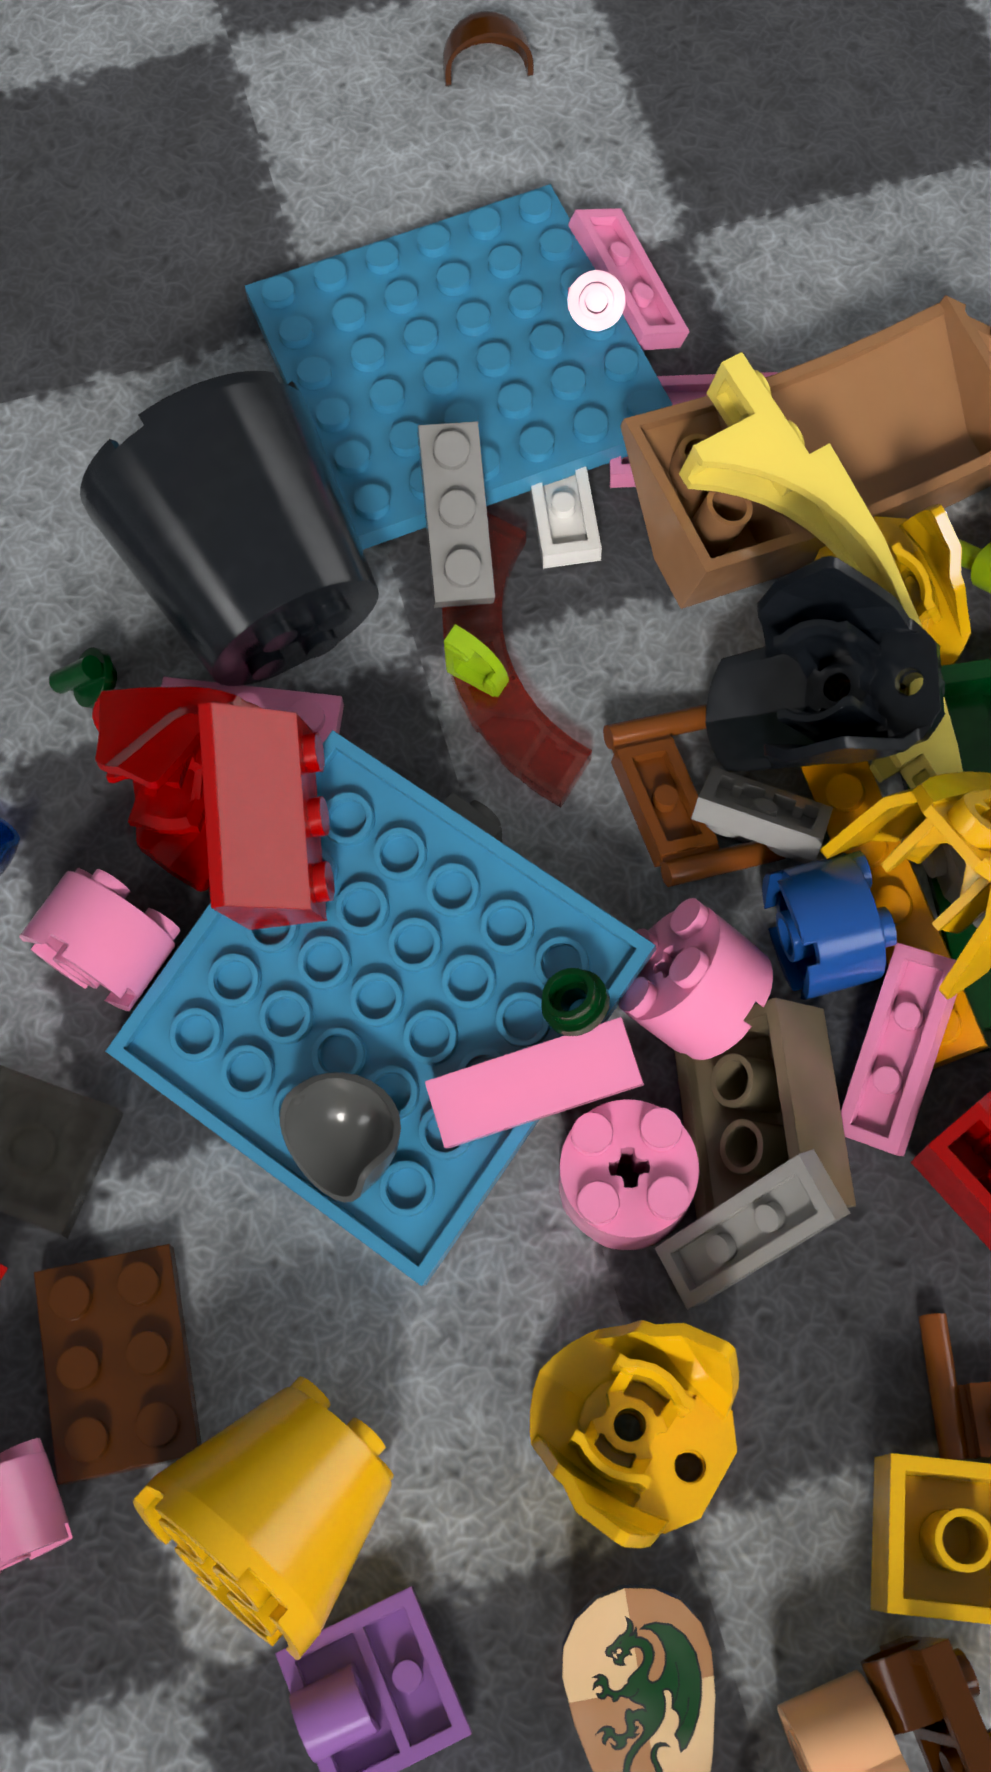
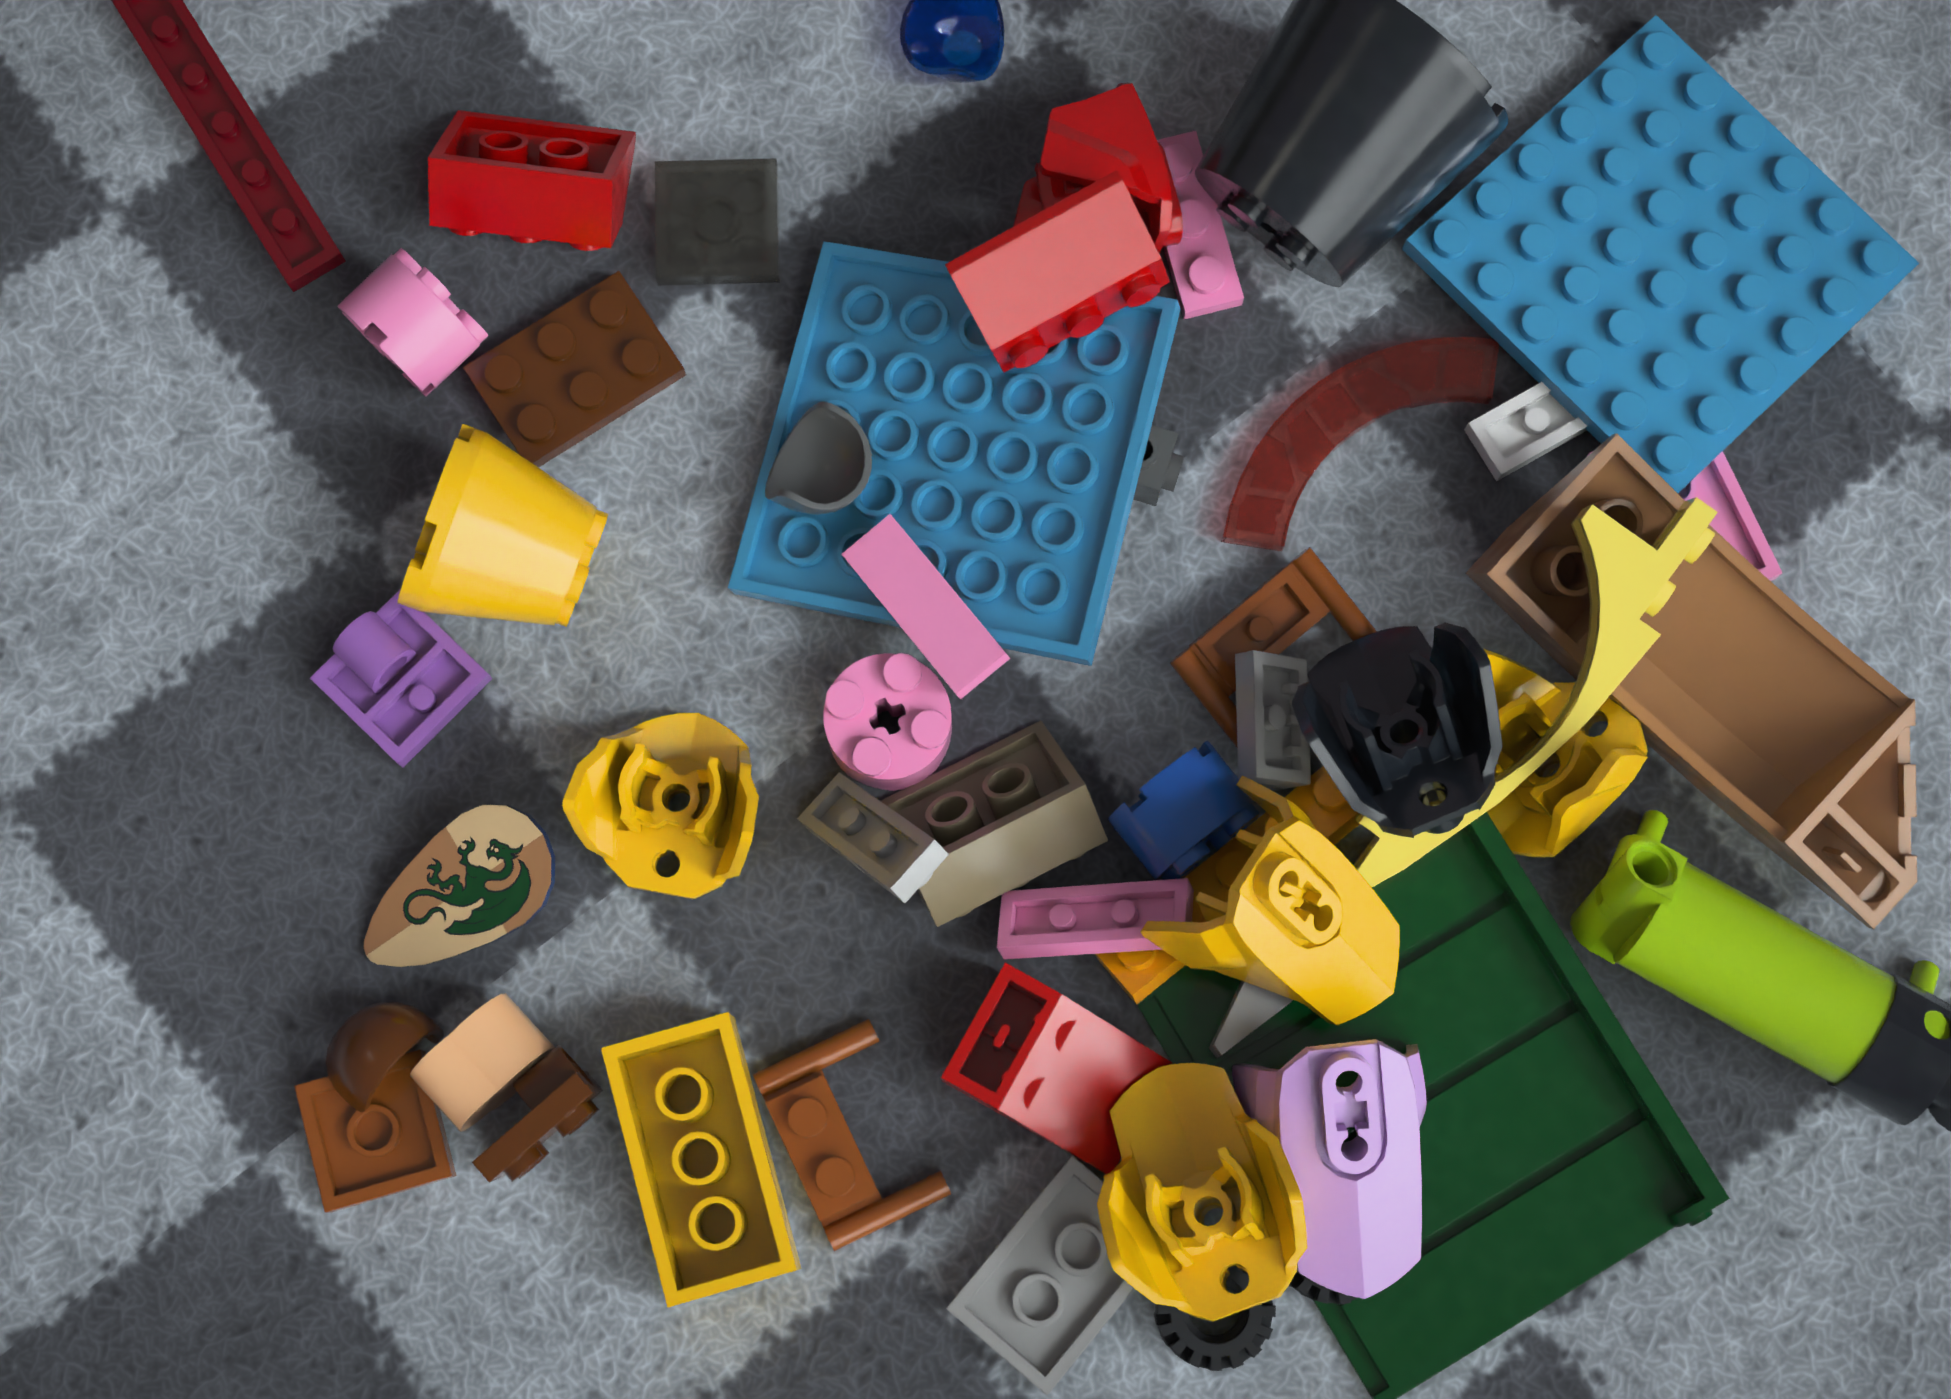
camera: 65 degrees right, 10 degrees up
(86, 676) = (1168, 67): dark green plate -> none
(100, 937) = (913, 190): bright pink brick -> none
(456, 514) = (1467, 321): light grey plate -> none
(474, 662) = (1320, 402): lime tile -> none
(565, 989) = (1009, 595): dark green plate -> none
(596, 300) = (1769, 361): plate -> none
(616, 249) = (1835, 385): bright pink plate -> none
(698, 982) = (1079, 713): bright pink brick -> none

